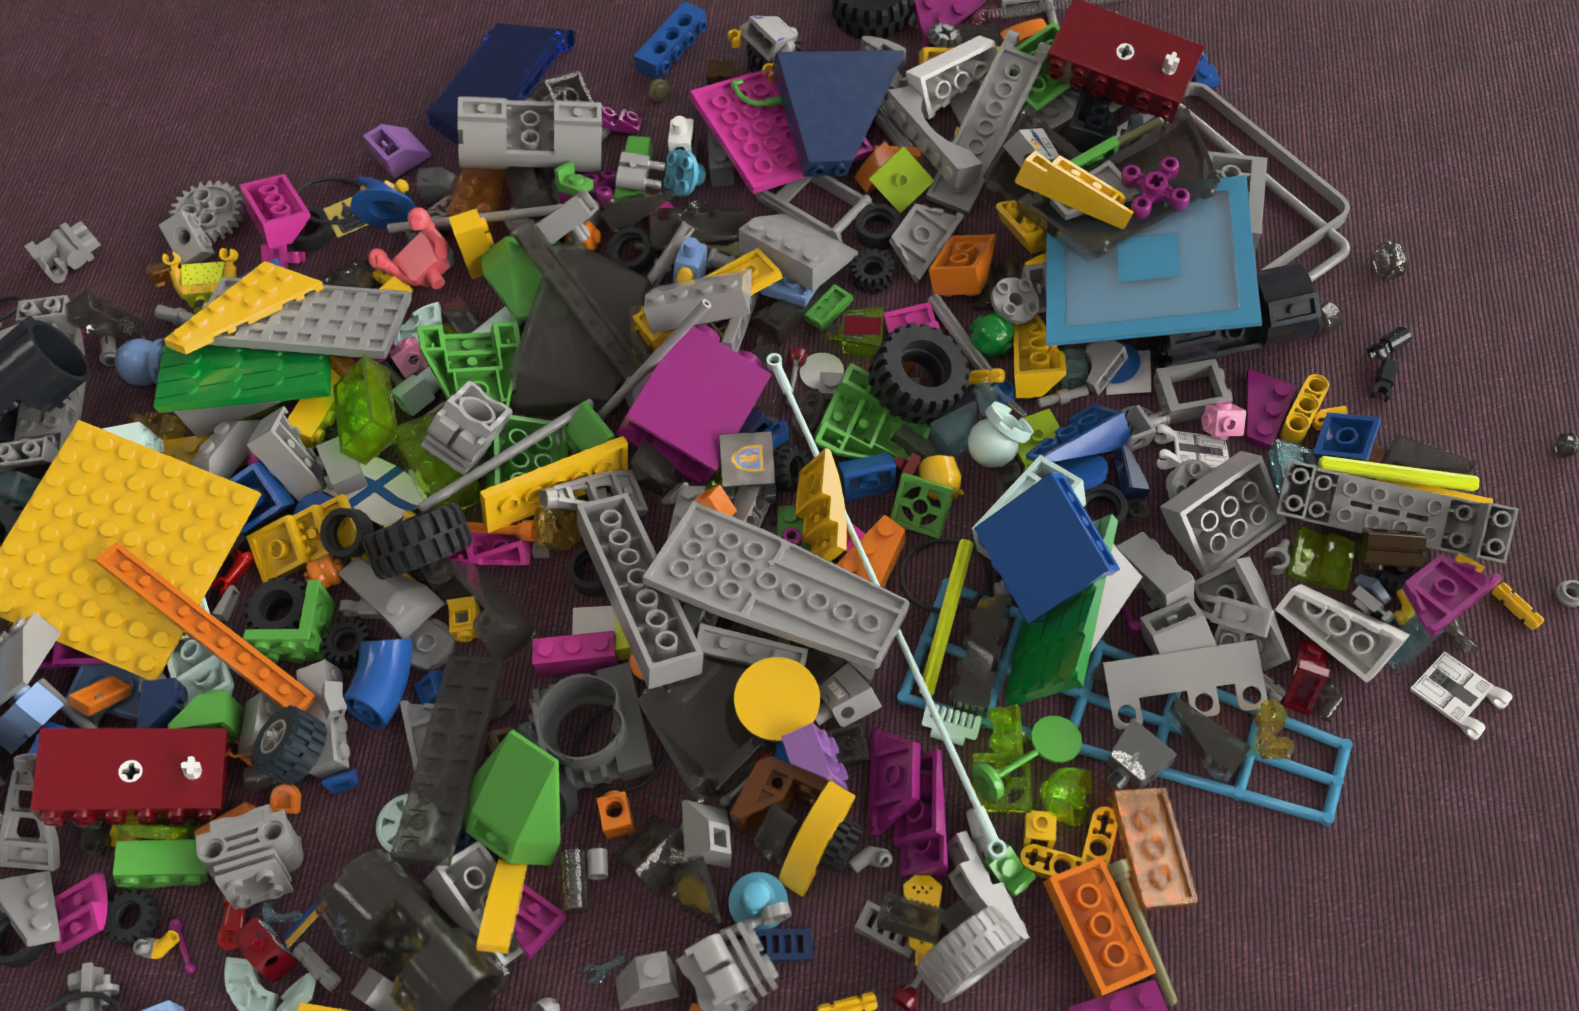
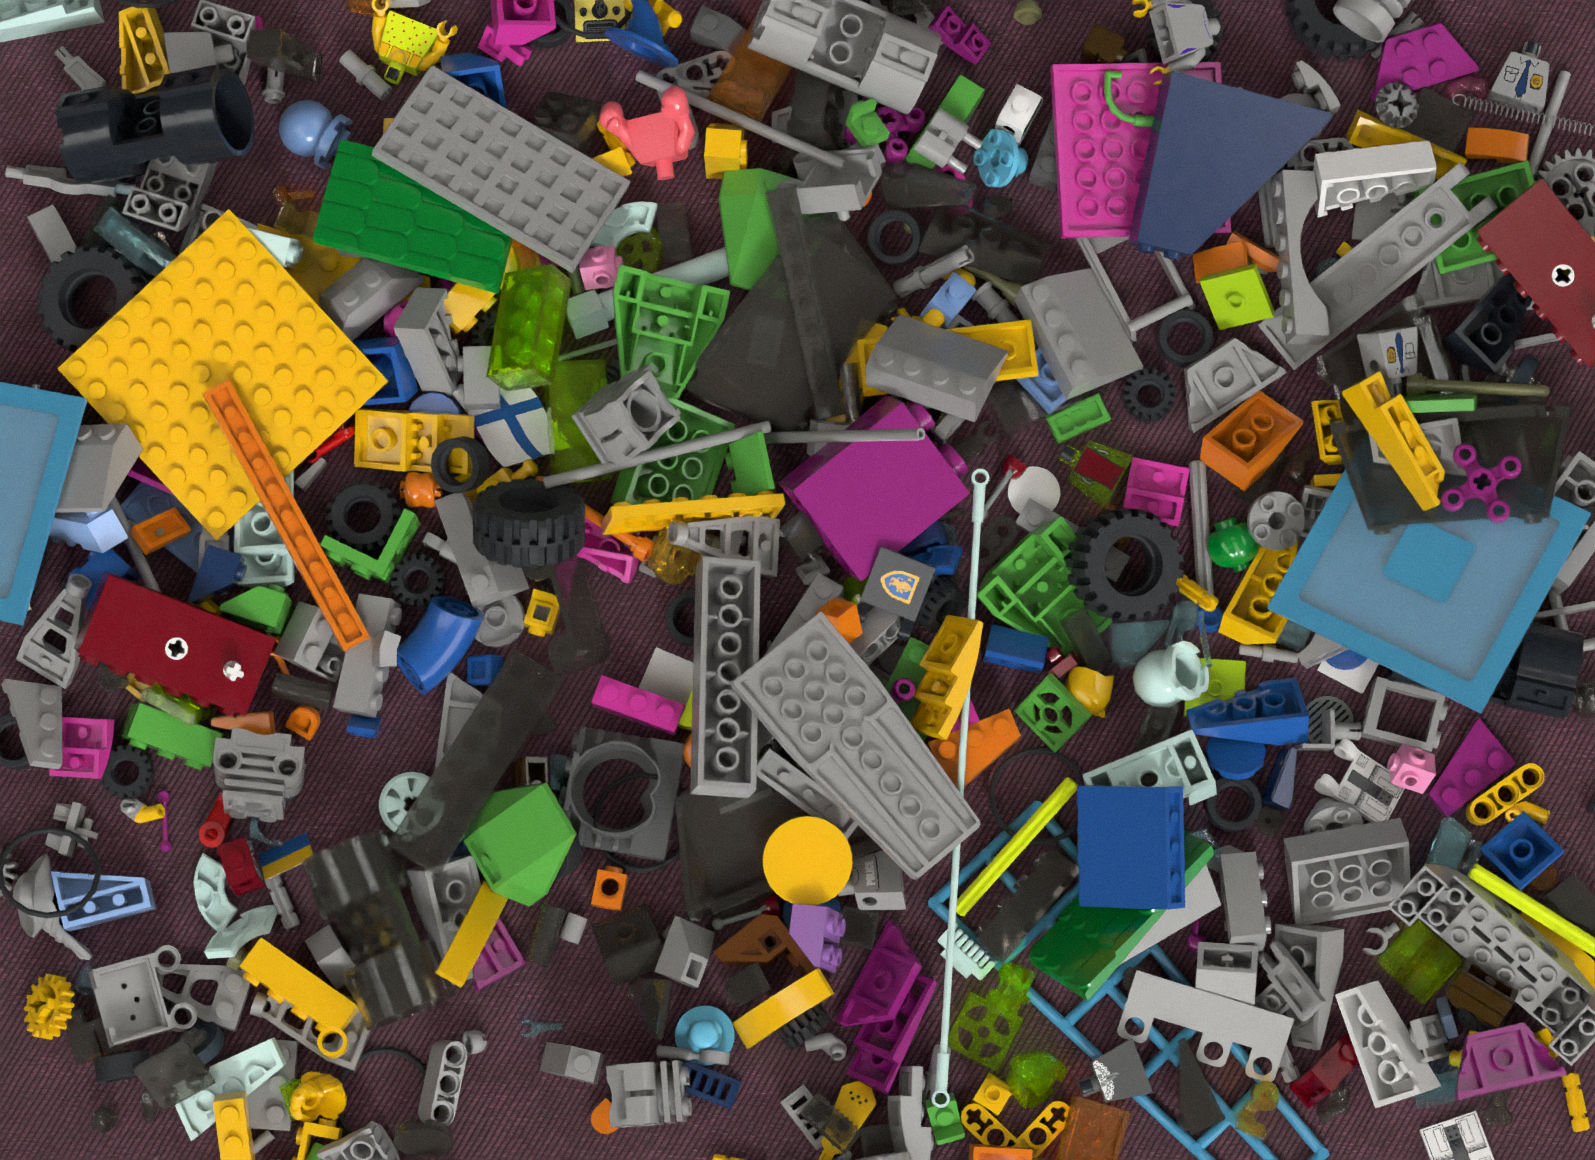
camera: 20 degrees right, 20 degrees up
(247, 301) = (449, 126): yellow wing -> none
(289, 745) = (329, 683): black wheel -> none
(1052, 739) = (1052, 1019): bright green piece -> none

